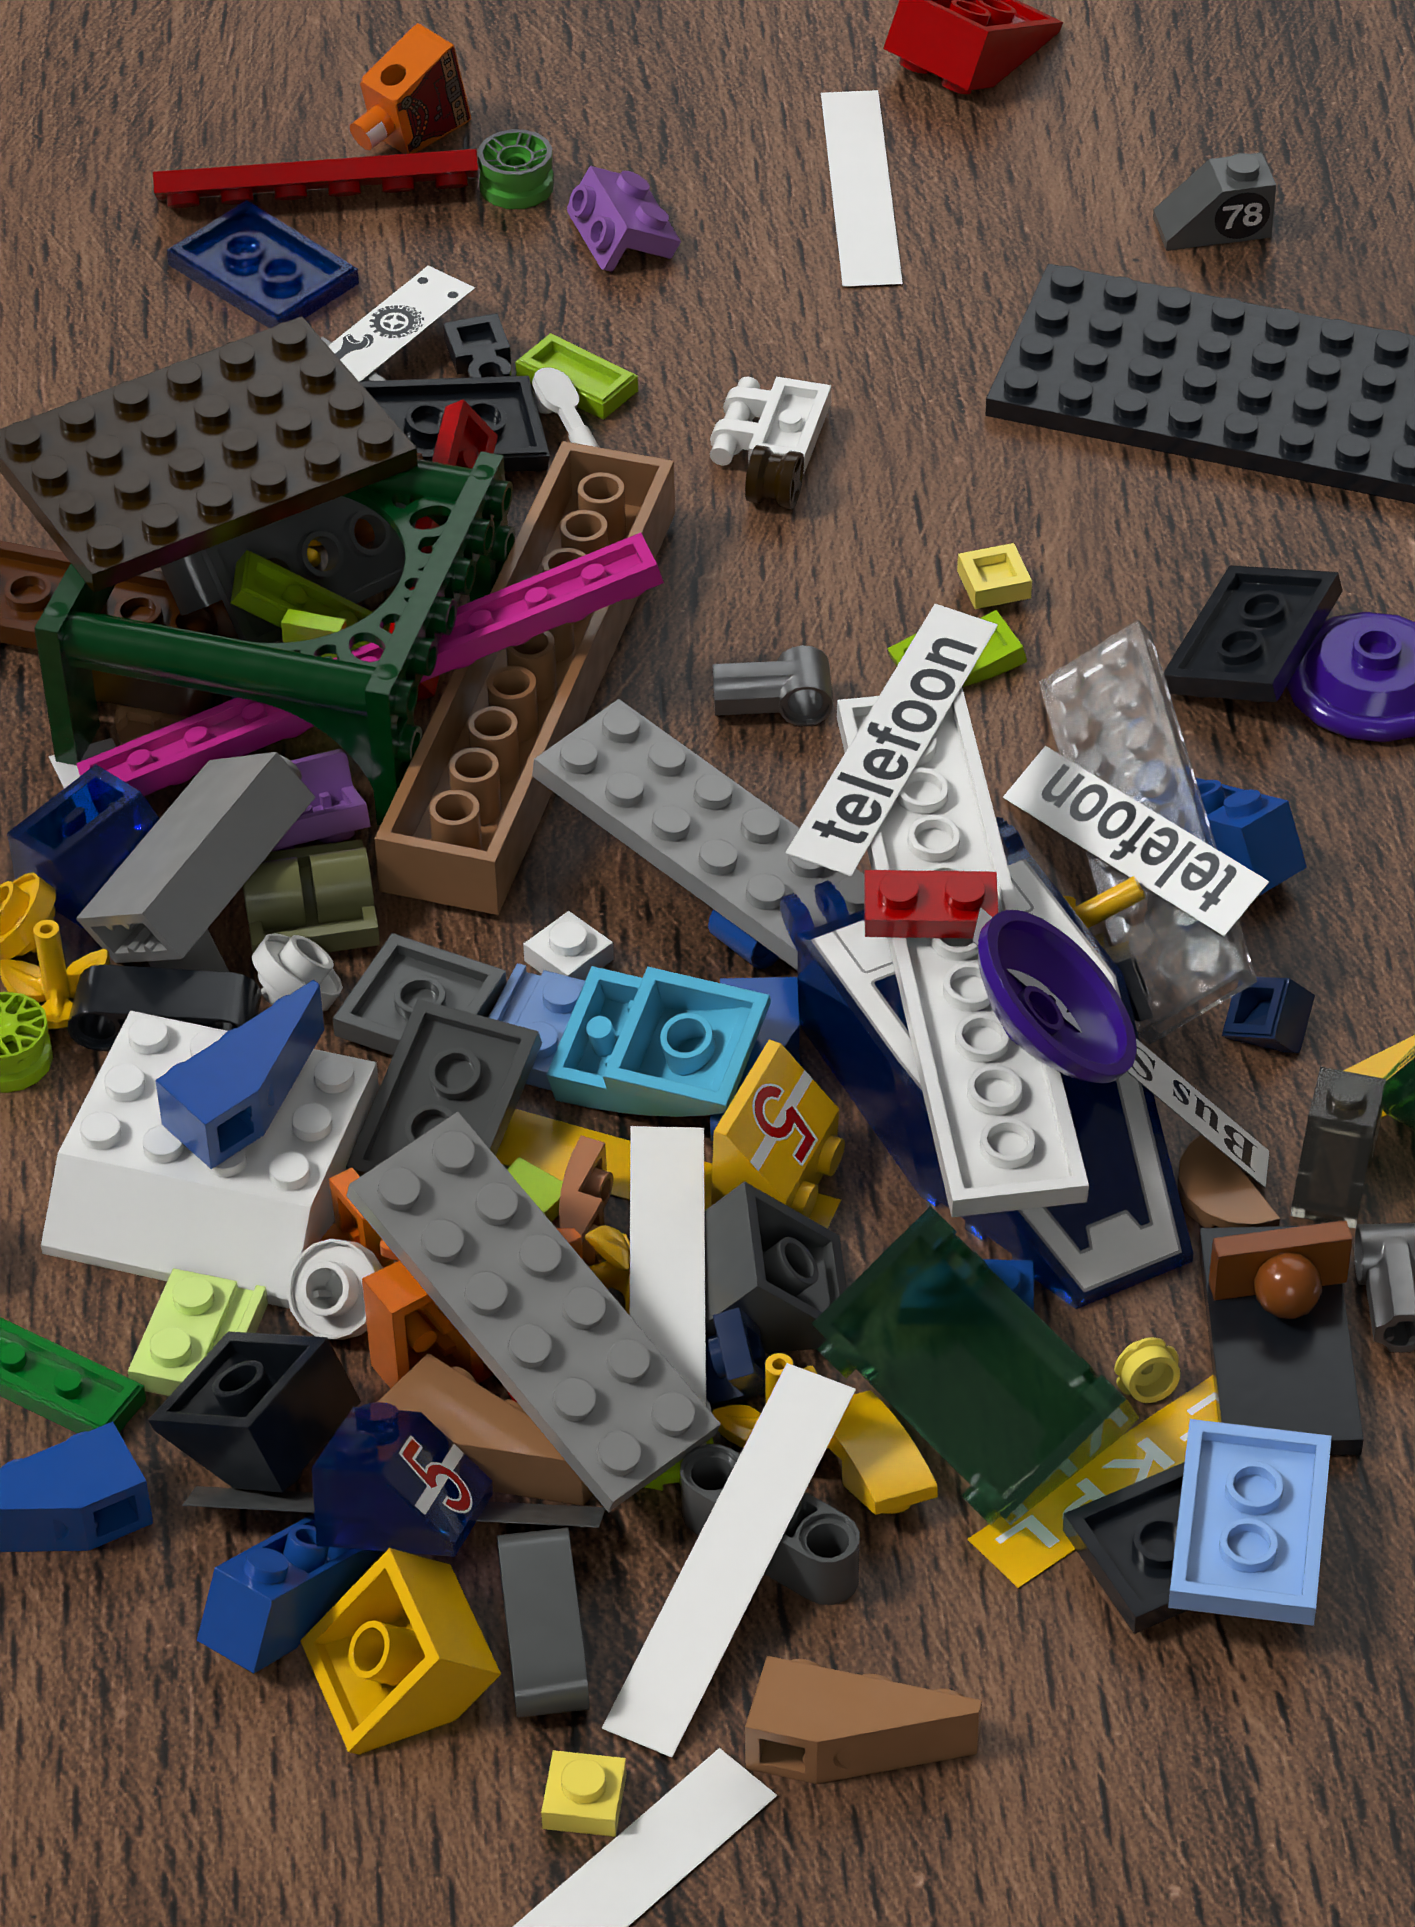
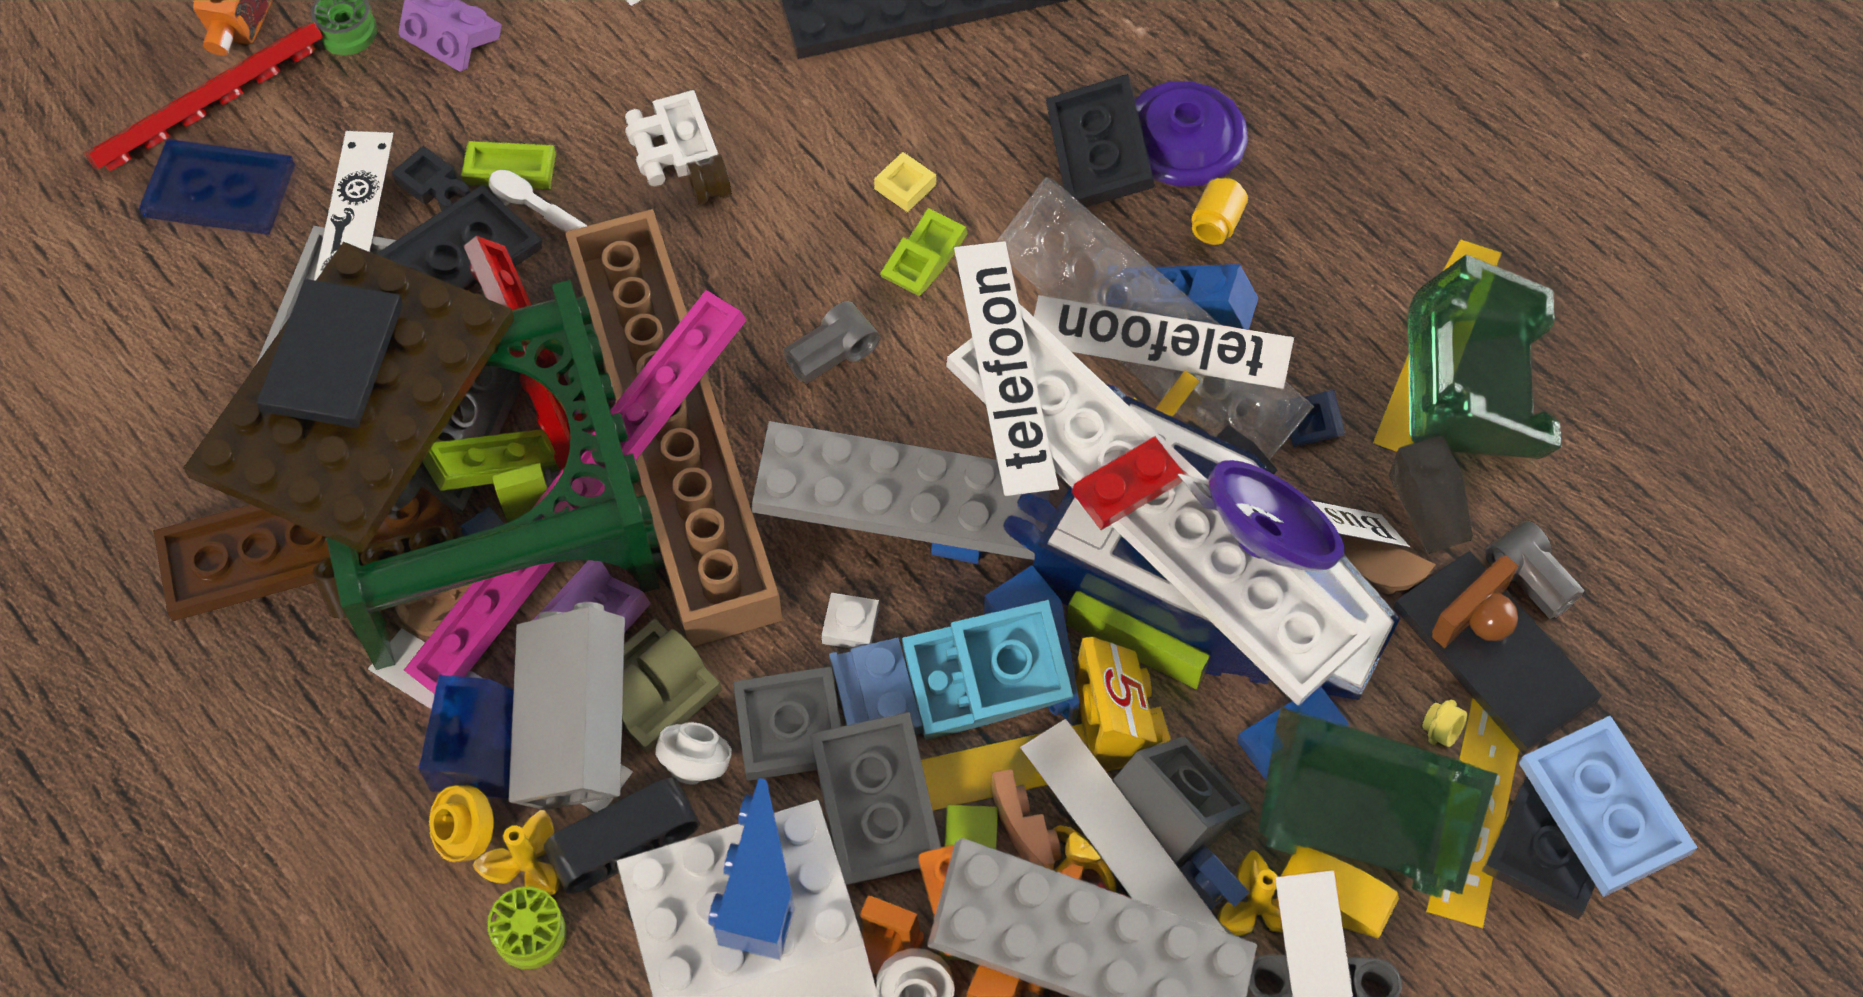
camera: 35 degrees left, 15 degrees up
(199, 396) = (330, 353): none -> black tile
(863, 1114) = (1151, 645): none -> lime tile
(1338, 762) = (1219, 210): none -> yellow brick

